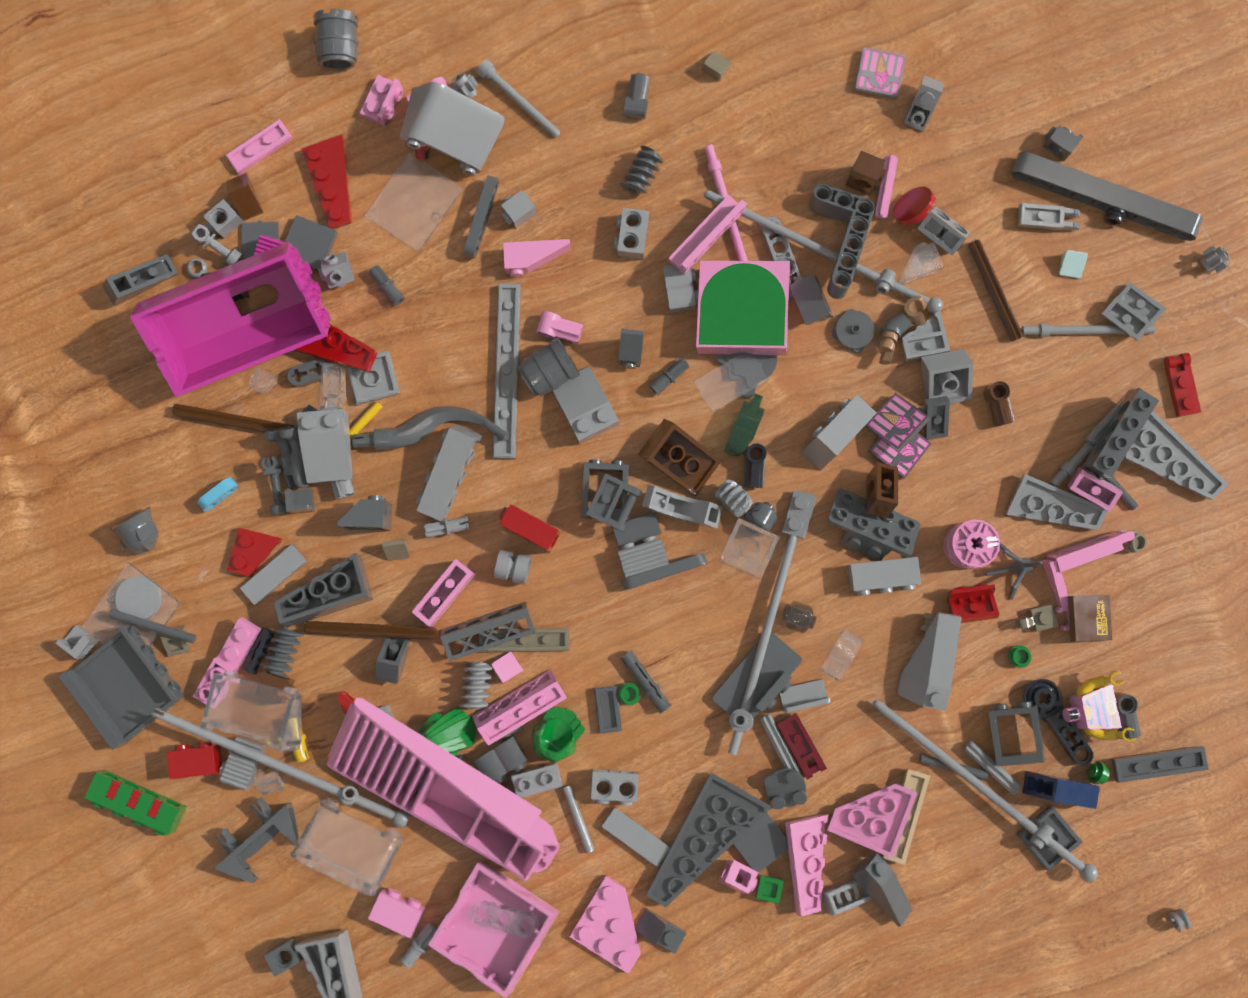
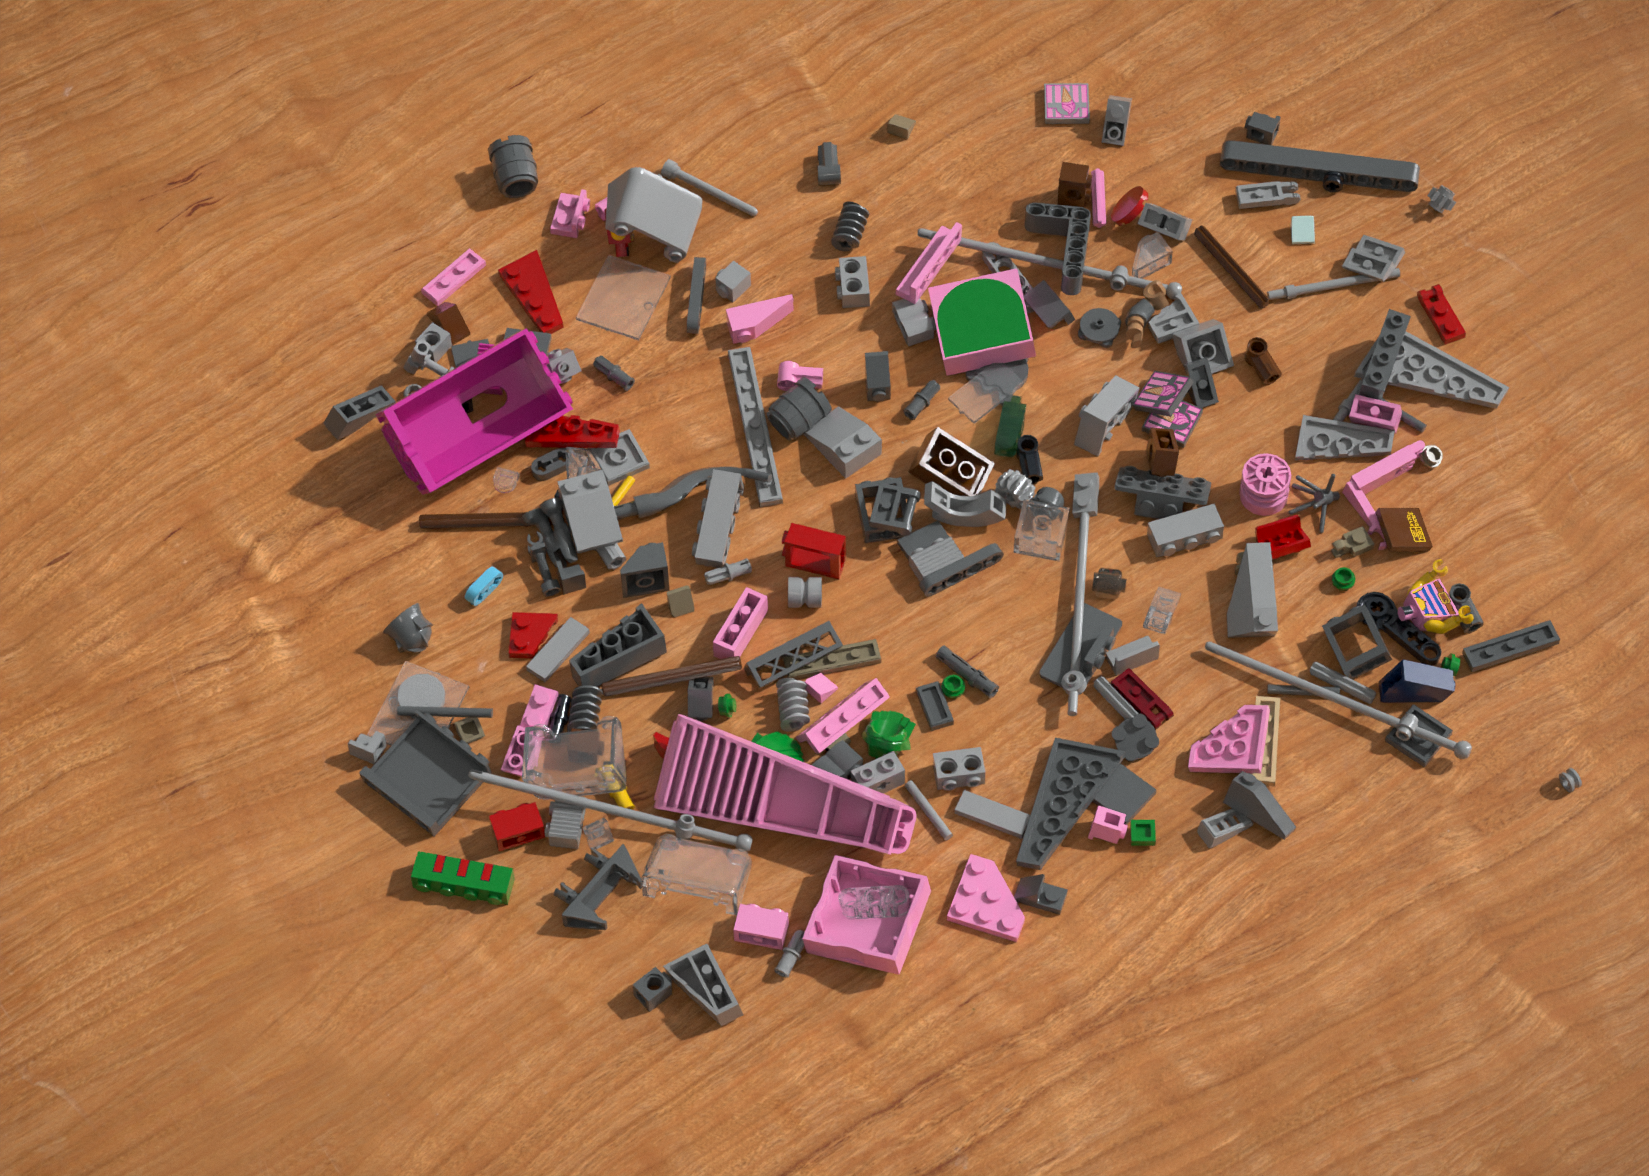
camera: 10 degrees left, 25 degrees down
(415, 671) = (726, 705): none -> green plate
(715, 169) = (923, 214): bright pink bar -> none
(805, 847) = (1172, 791): bright pink wing -> none

